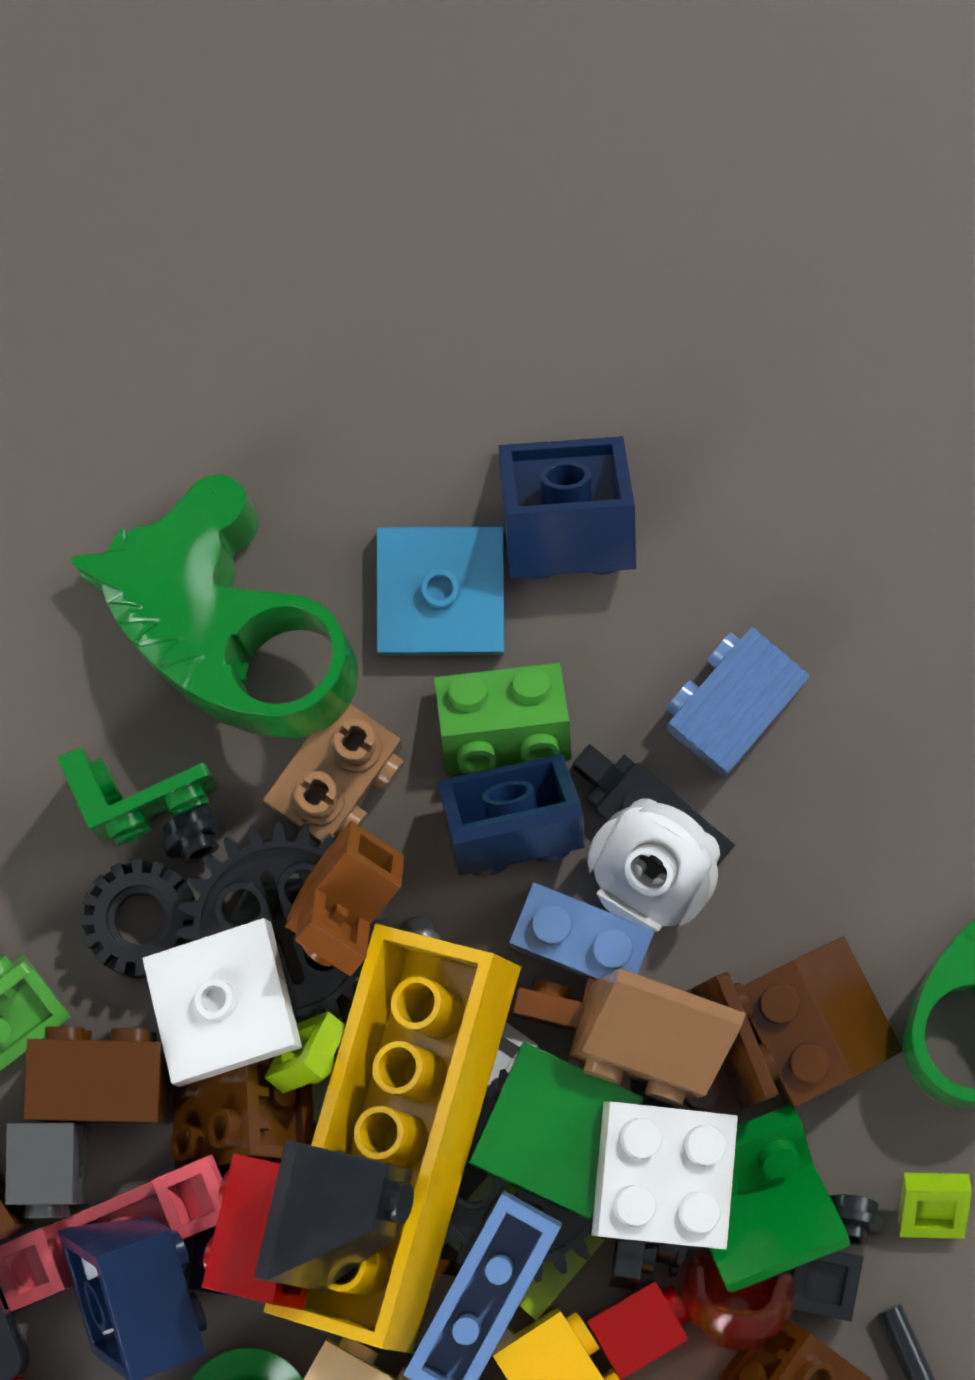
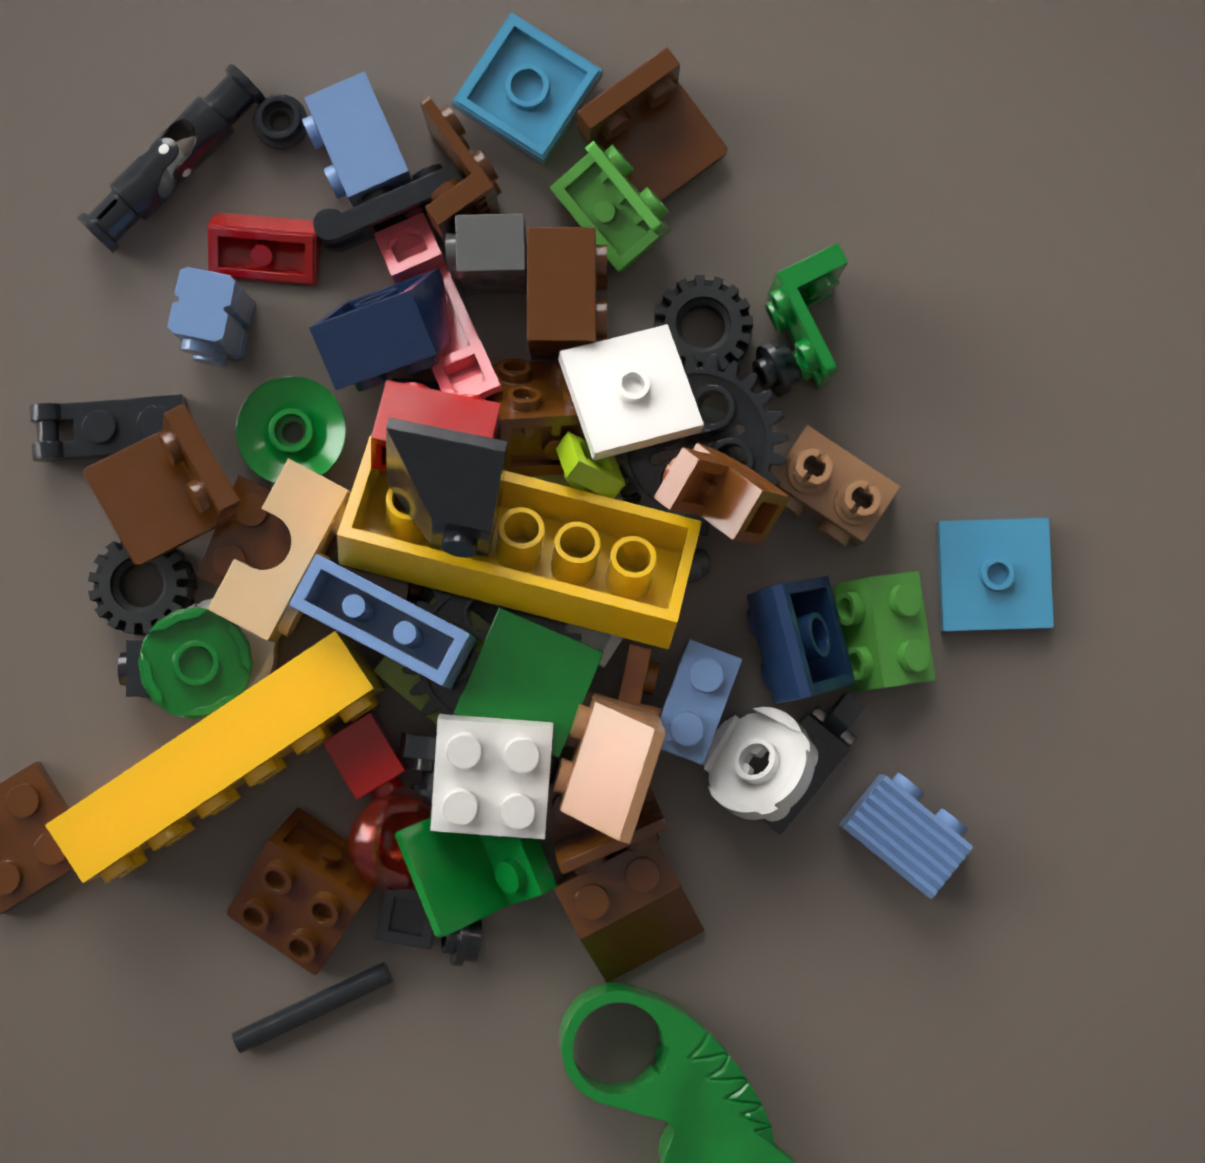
camera: 95 degrees right, 5 degrees up
(179, 610) = (961, 356): green animal -> none
(567, 507) = (1073, 683): dark blue slope -> none
(934, 1205) = (475, 1010): lime plate -> none

